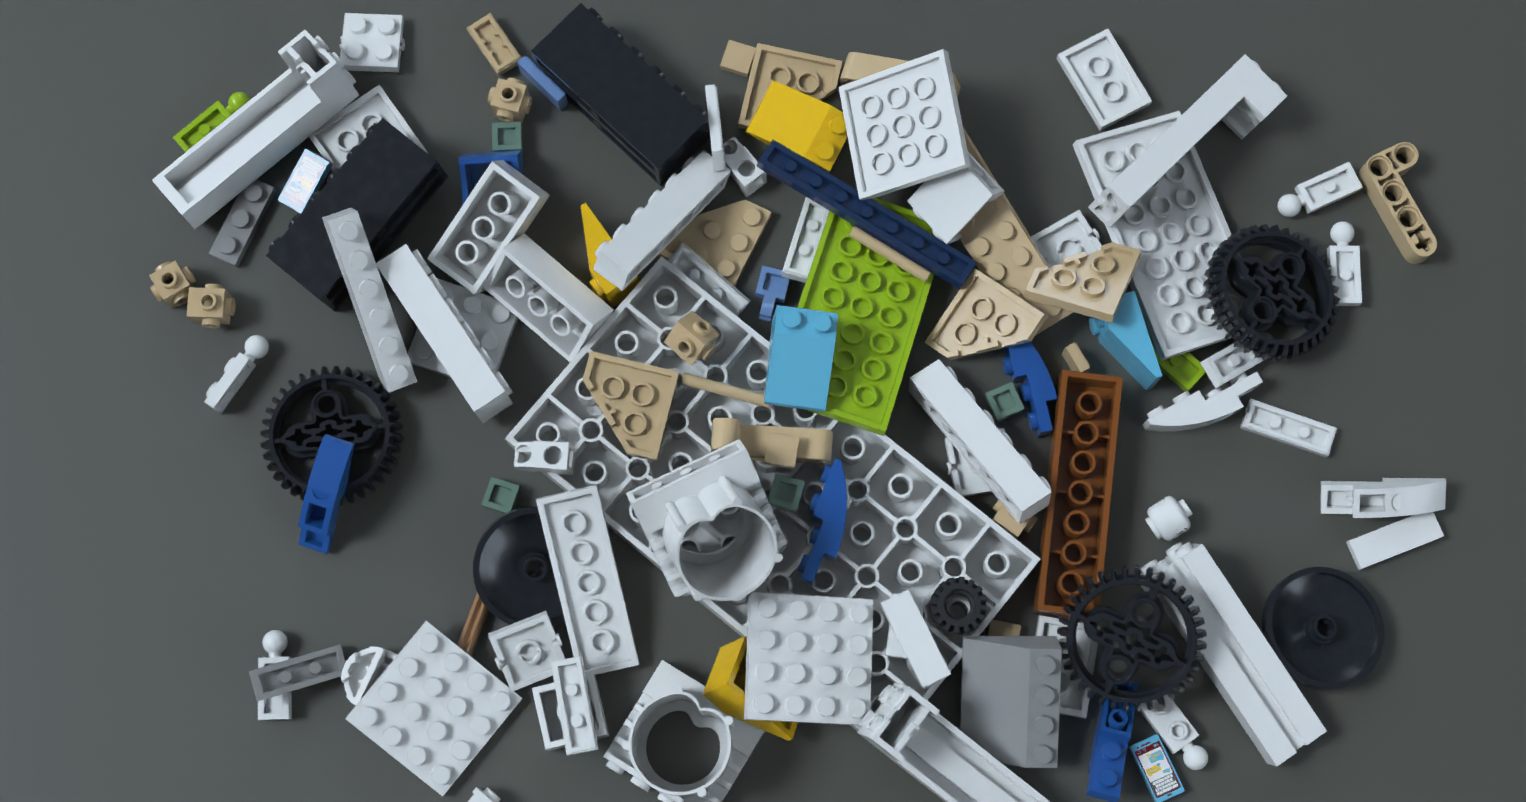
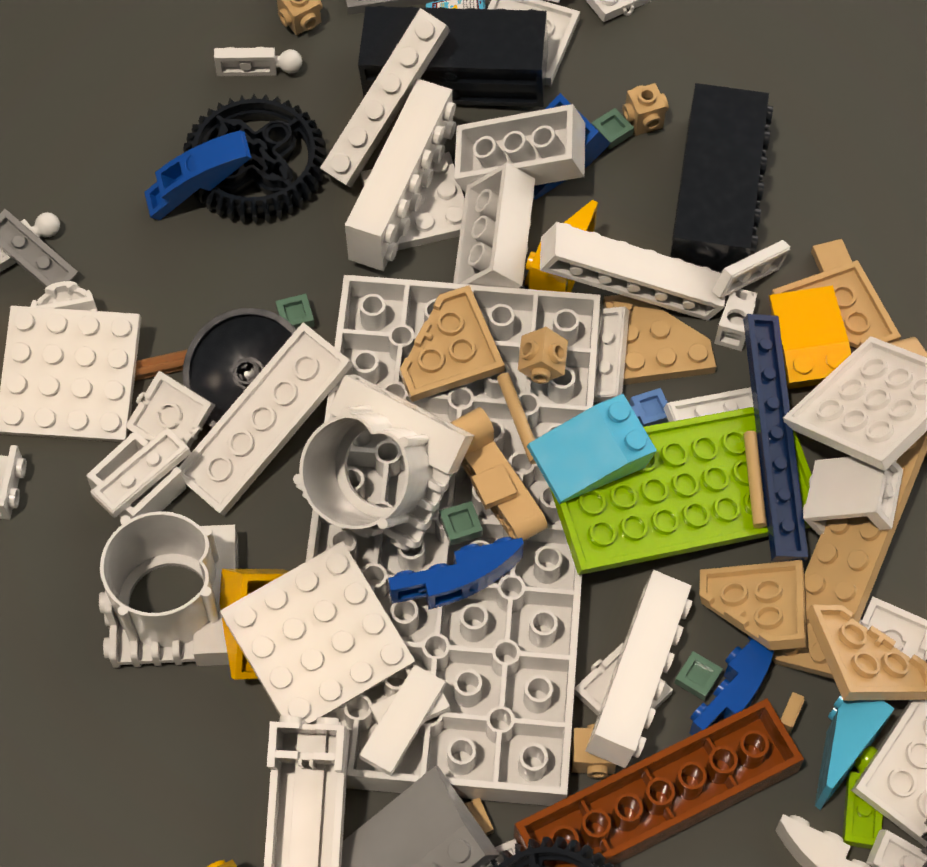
camera: 55 degrees right, 15 degrees down
(494, 44) = (684, 71): tan plate -> none
(543, 82) = (681, 124): medium blue tile -> none
(544, 457) = (349, 311): white leg -> none
(971, 592) = (457, 762): black tyre -> none

